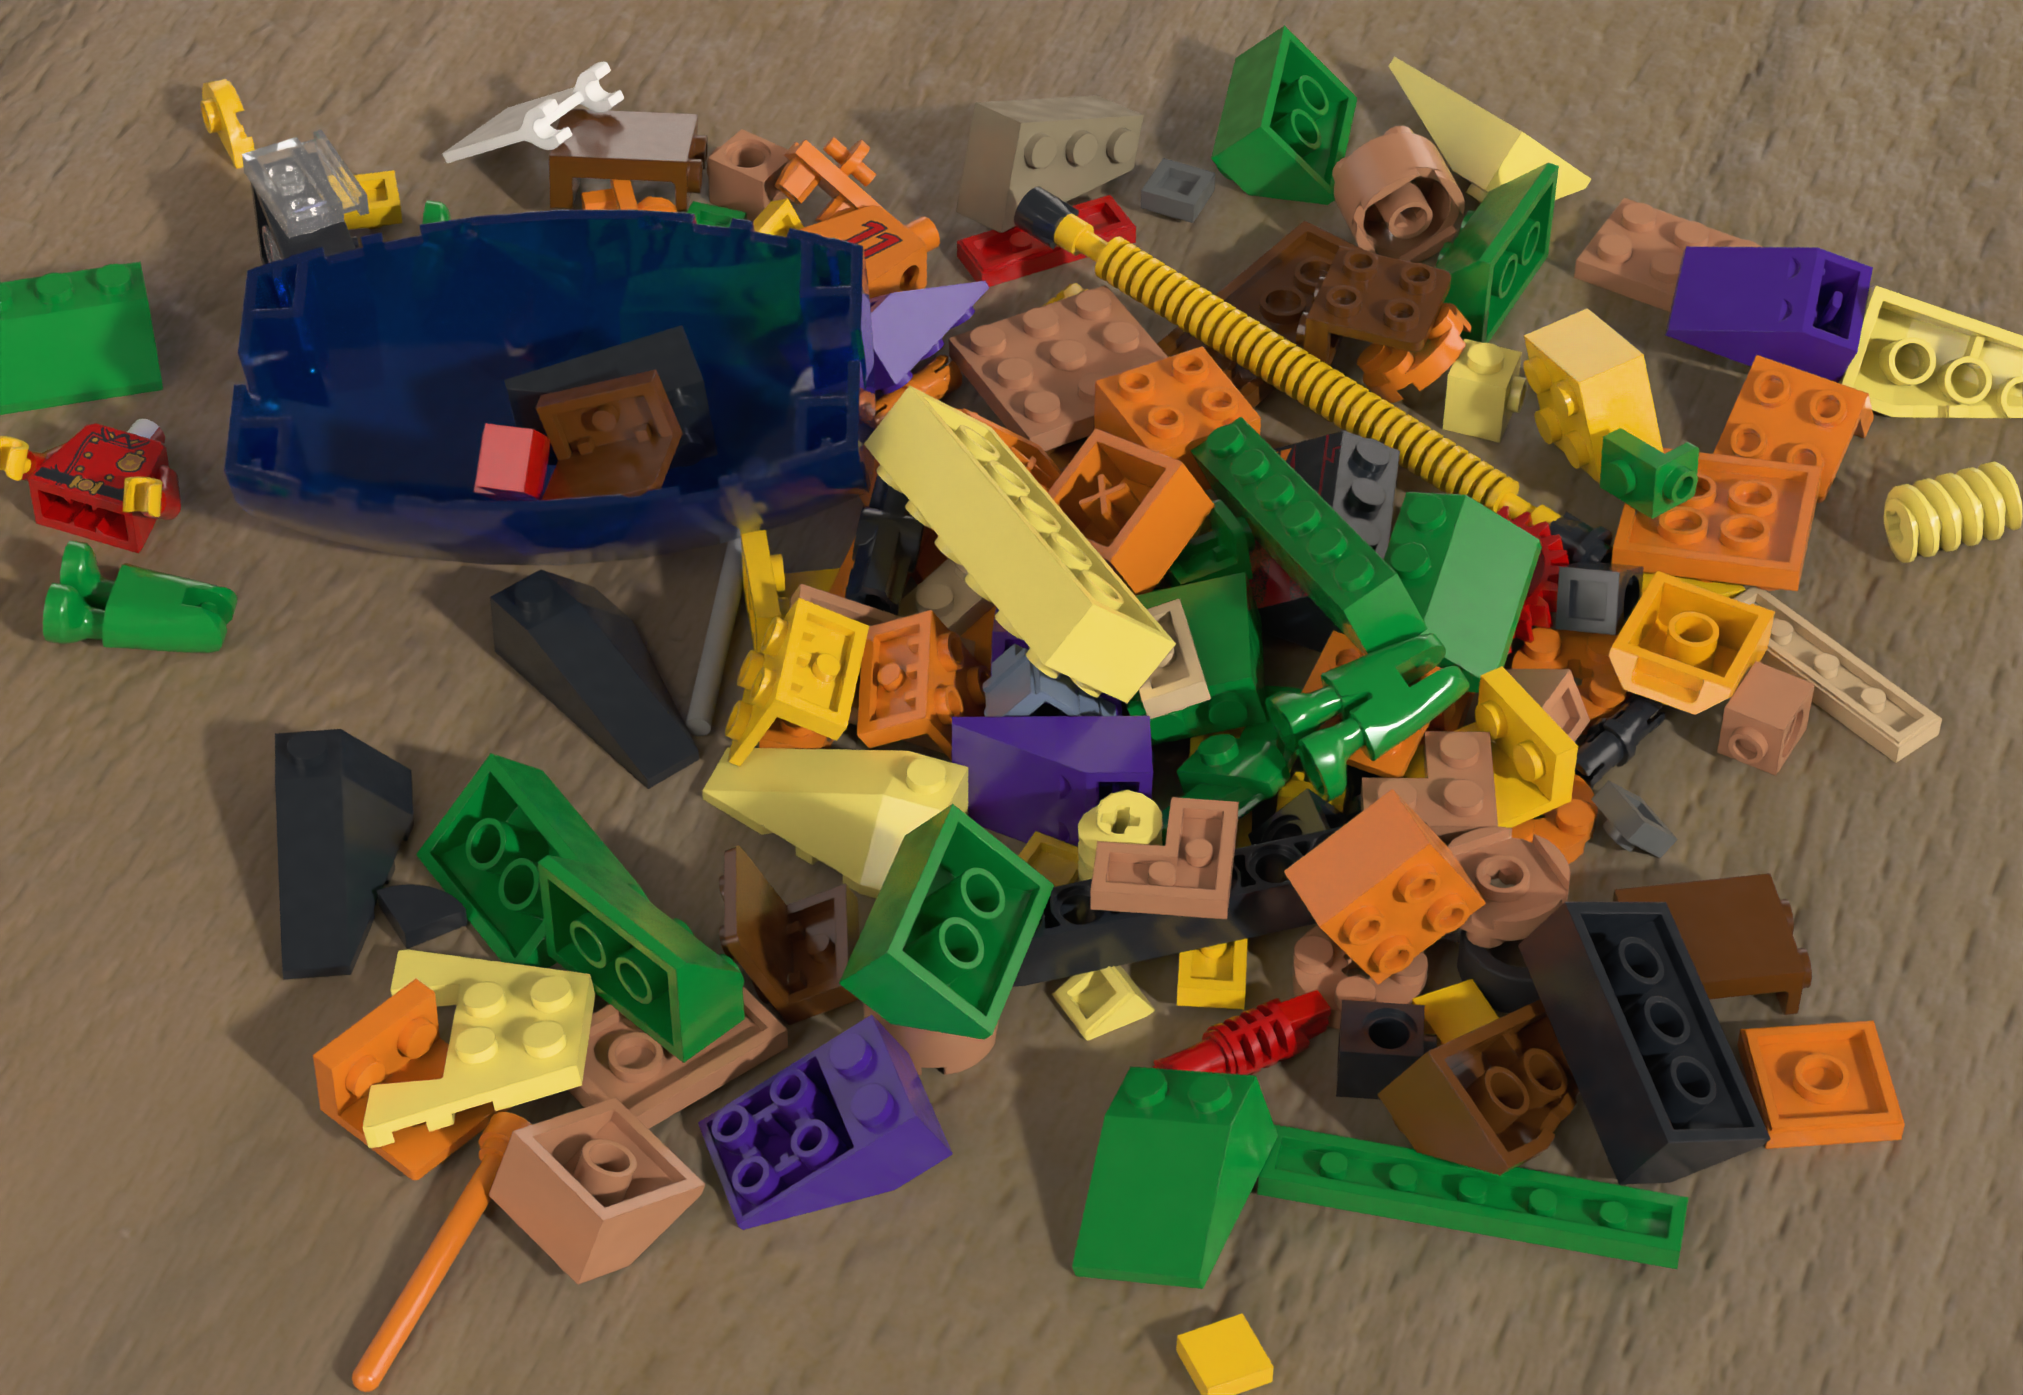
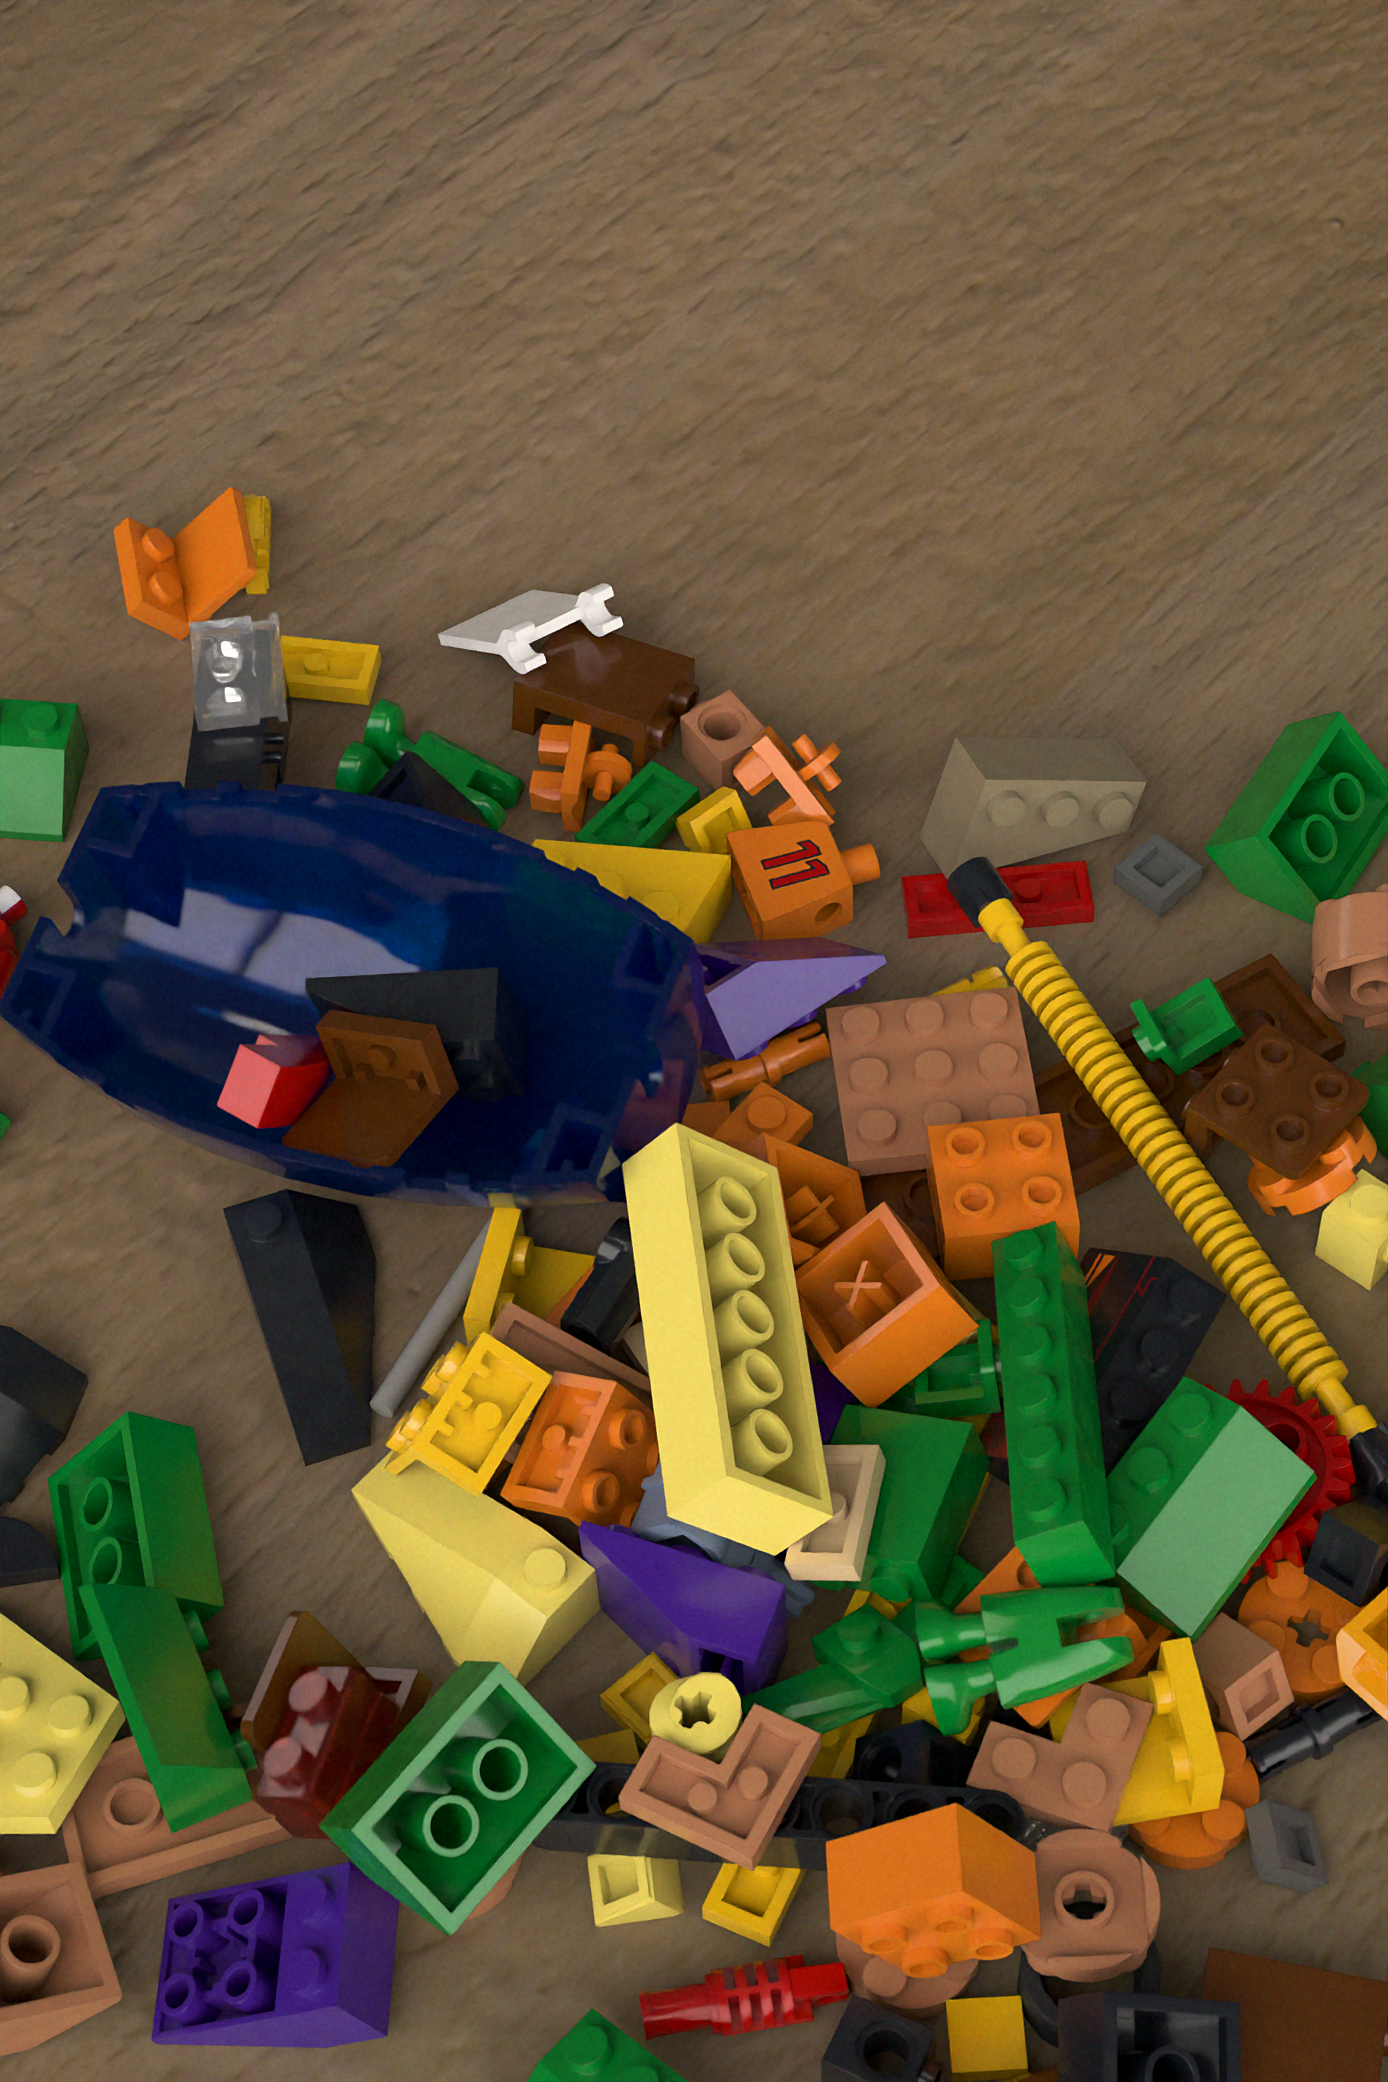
camera: 25 degrees right, 10 degrees up
(189, 144) = (188, 575): none -> orange bracket
(800, 954) = (322, 1746): none -> clear red brick
(1267, 277) = (1186, 1027): none -> green bracket

